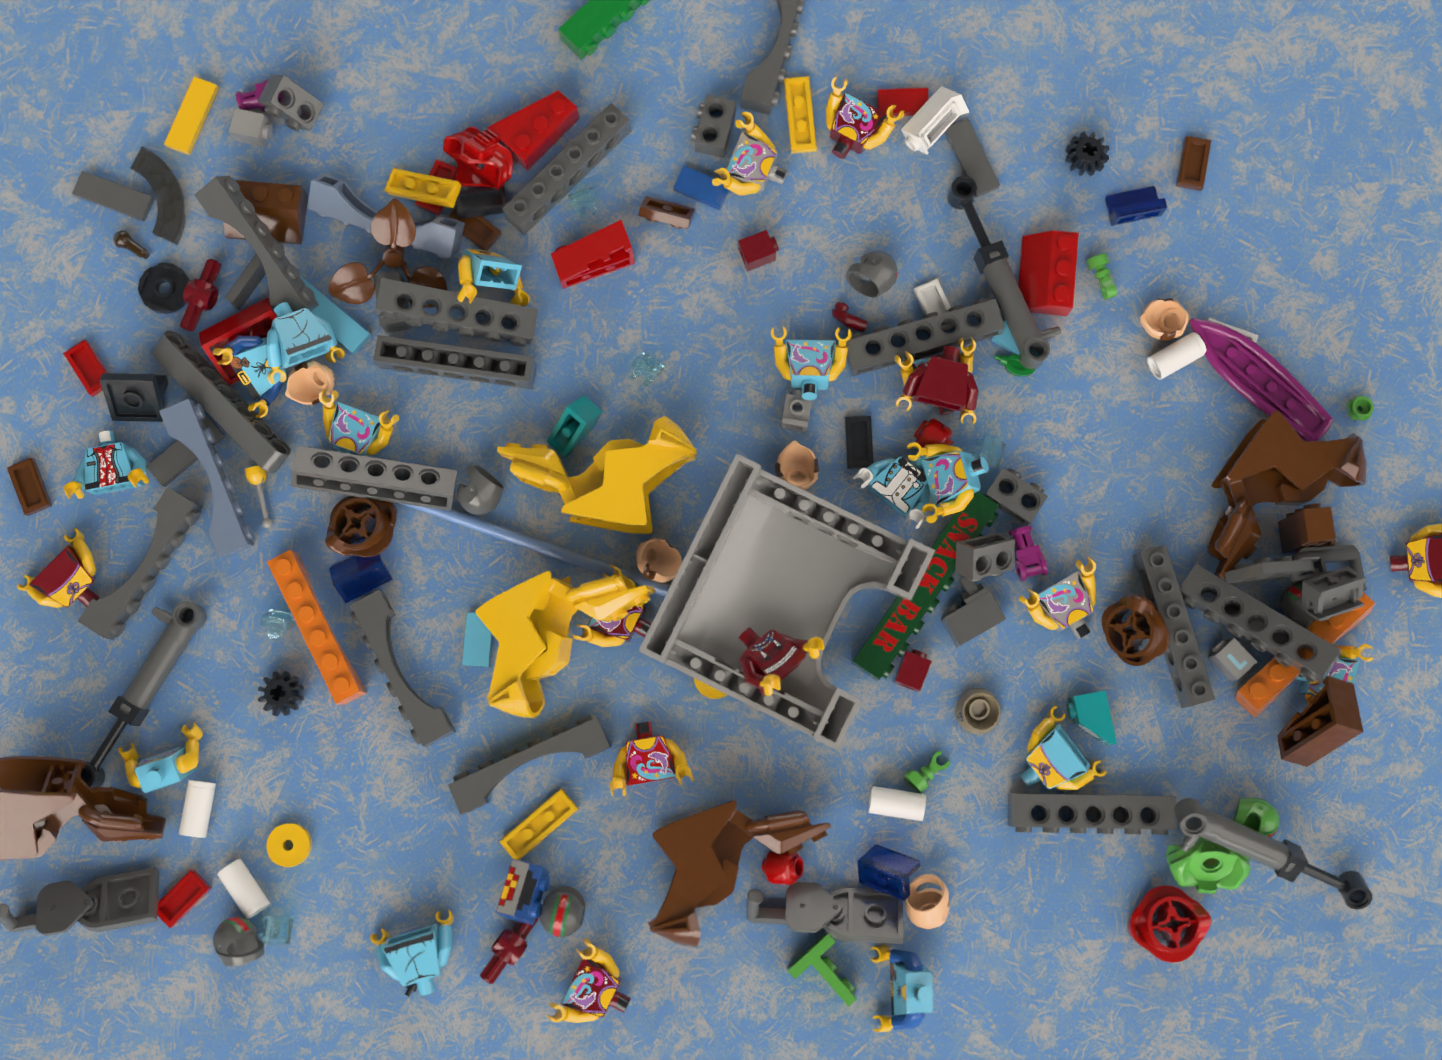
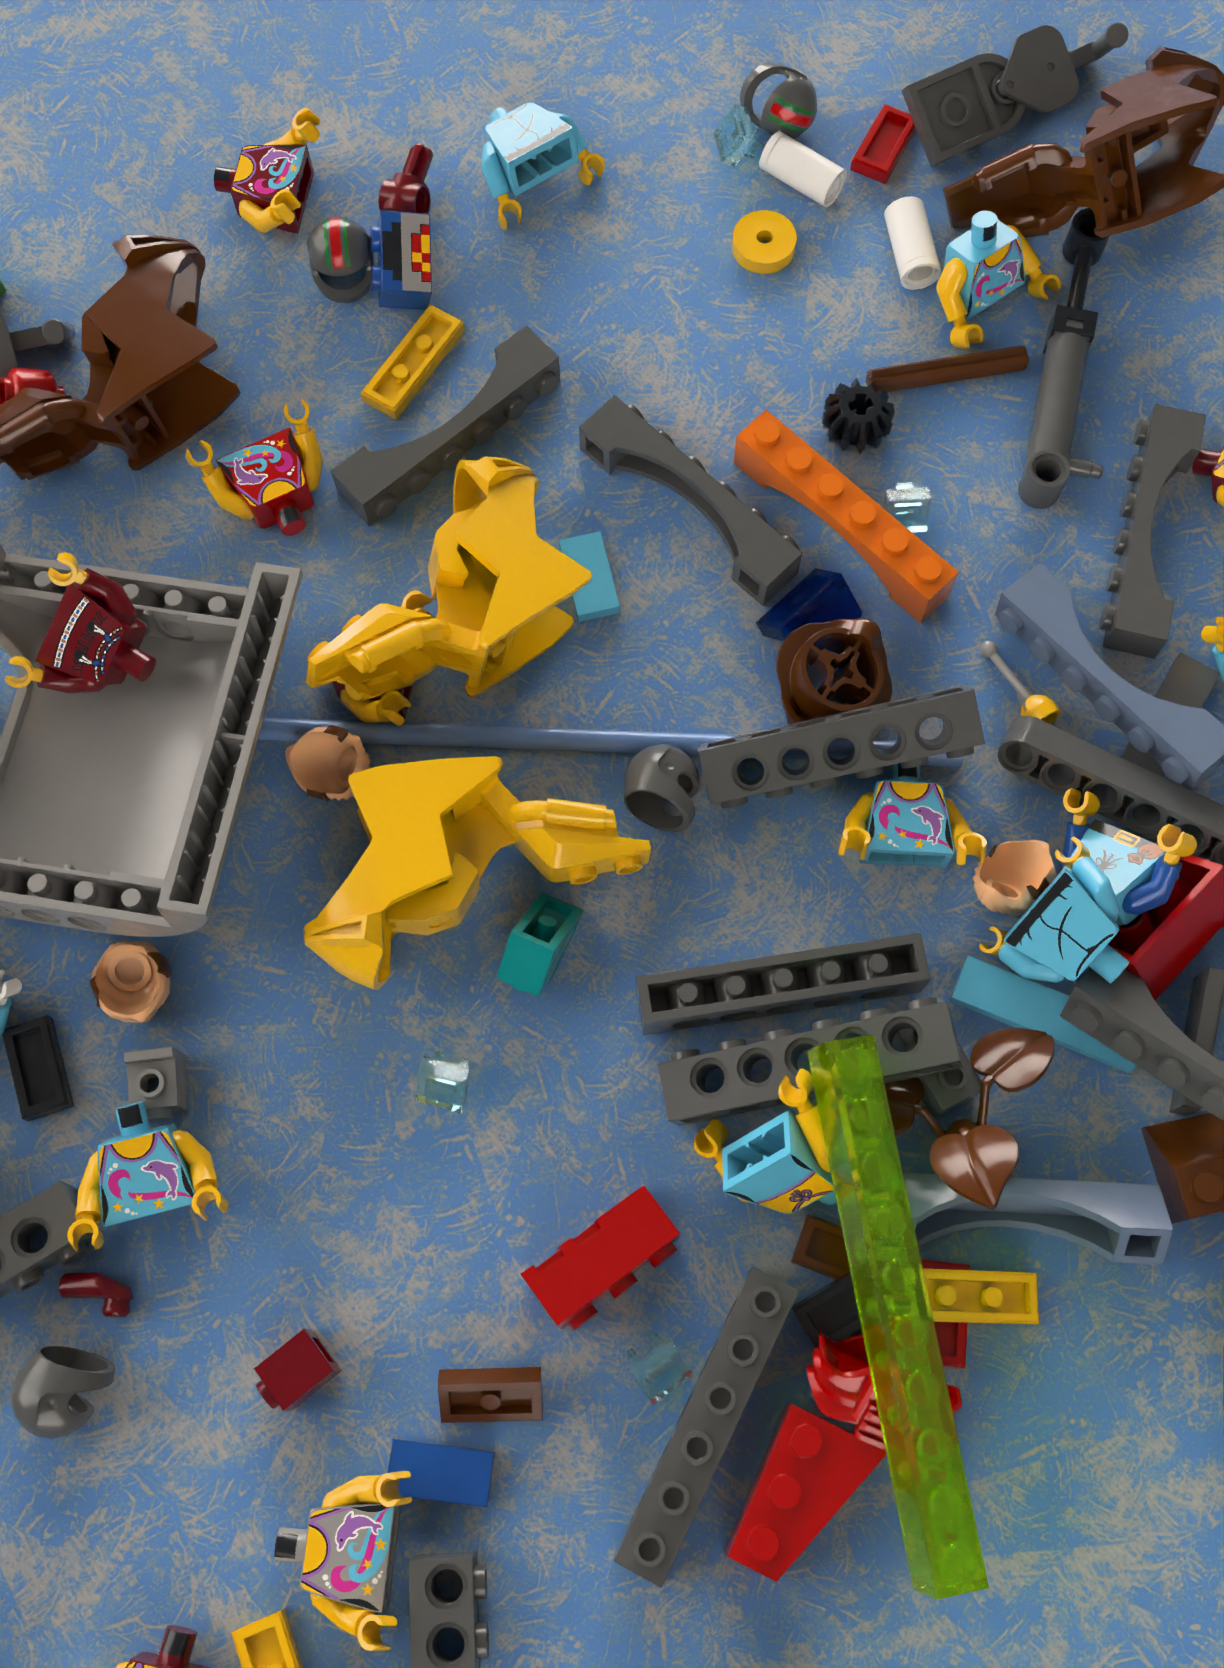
camera: 160 degrees right, 10 degrees down
(213, 712) = (949, 369): none -> reddish brown axle
(458, 179) = (896, 1320): none -> clear neon green brick

